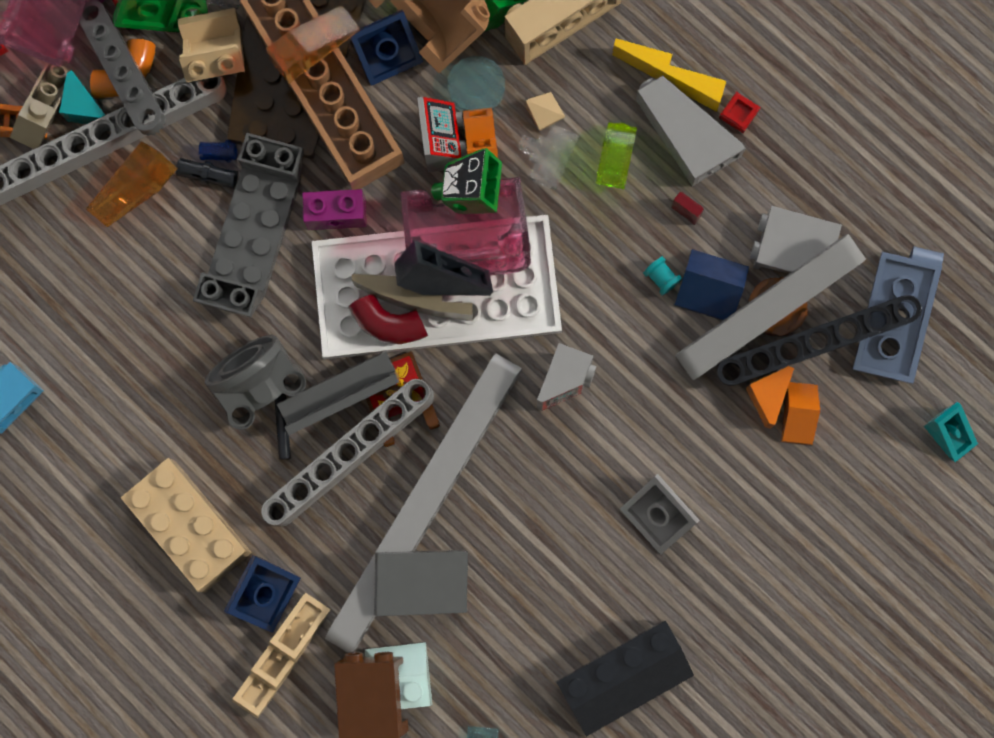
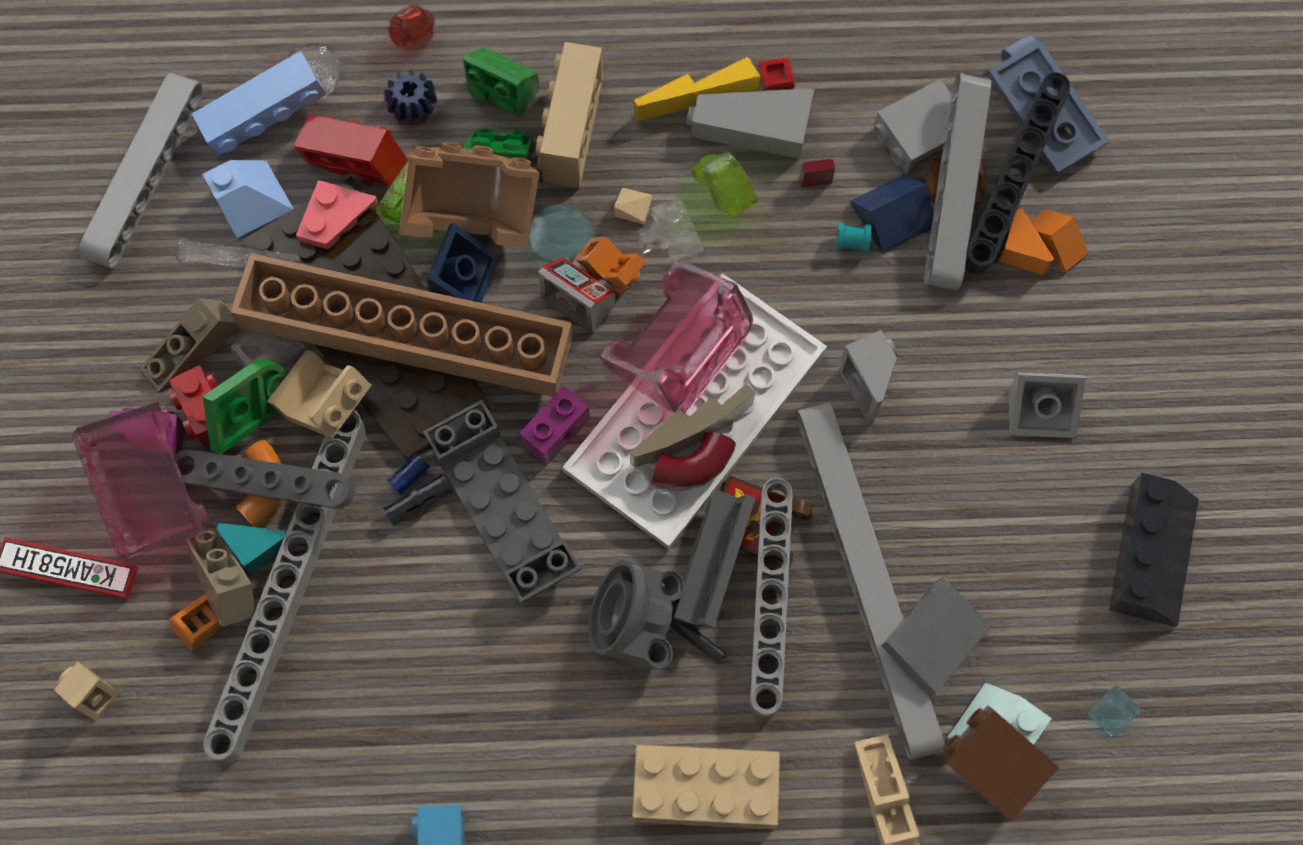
camera: 55 degrees left, 10 degrees down
(132, 184) = (367, 561): clear orange slope -> none
(262, 593) = (823, 777): dark blue slope -> none
(311, 42) = (411, 307): clear orange slope -> none
(439, 273) = (698, 384): black slope -> none
(471, 183) = (646, 300): torso -> none
(952, 431) = (1168, 149): teal slope -> none

